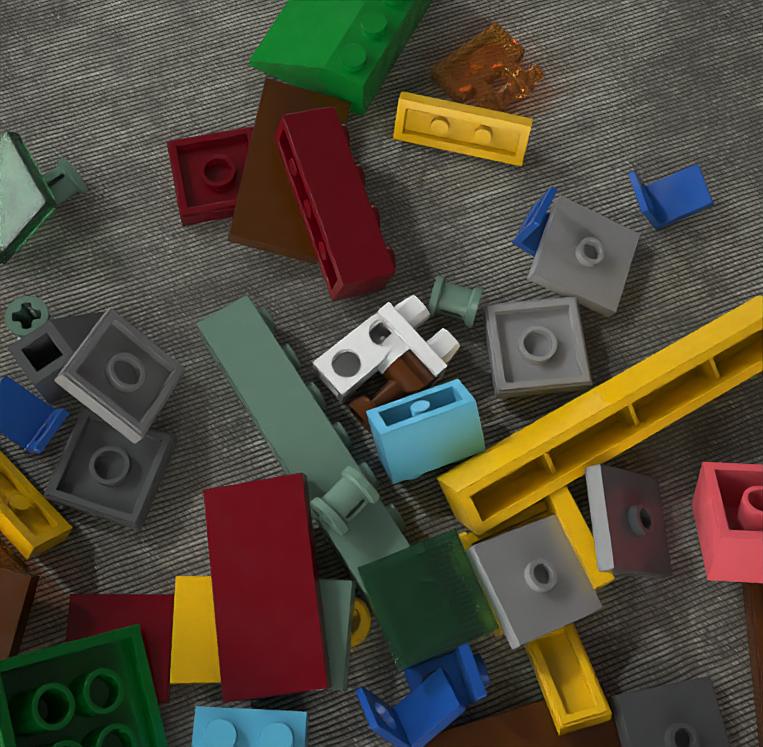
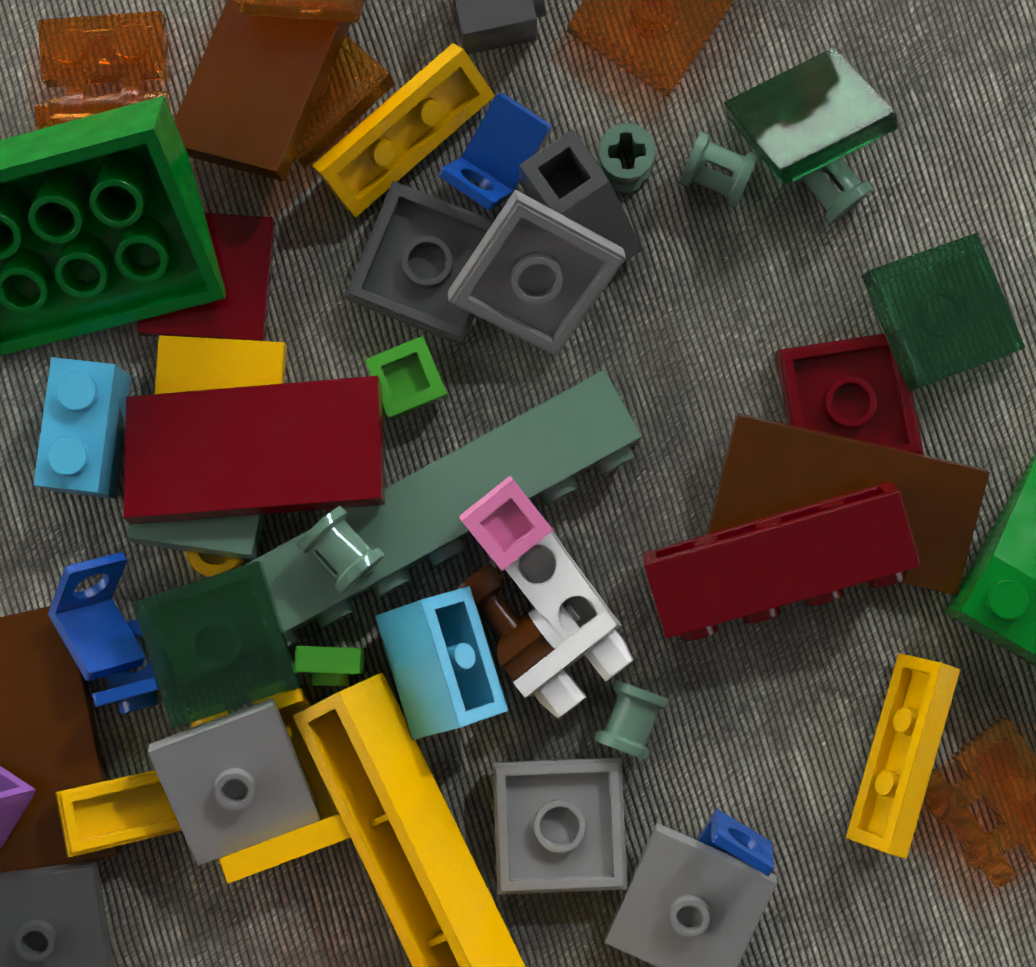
camera: 100 degrees right, 15 degrees up
(44, 261) = (698, 173): none -> sand green bush
(153, 115) = (942, 312): none -> clear green tile
(199, 472) = (407, 378): none -> bright green plate
(317, 379) = (505, 523): none -> bright pink plate
(433, 515) = (330, 664): none -> bright green plate
(627, 522) = (300, 913): dark grey plate -> none

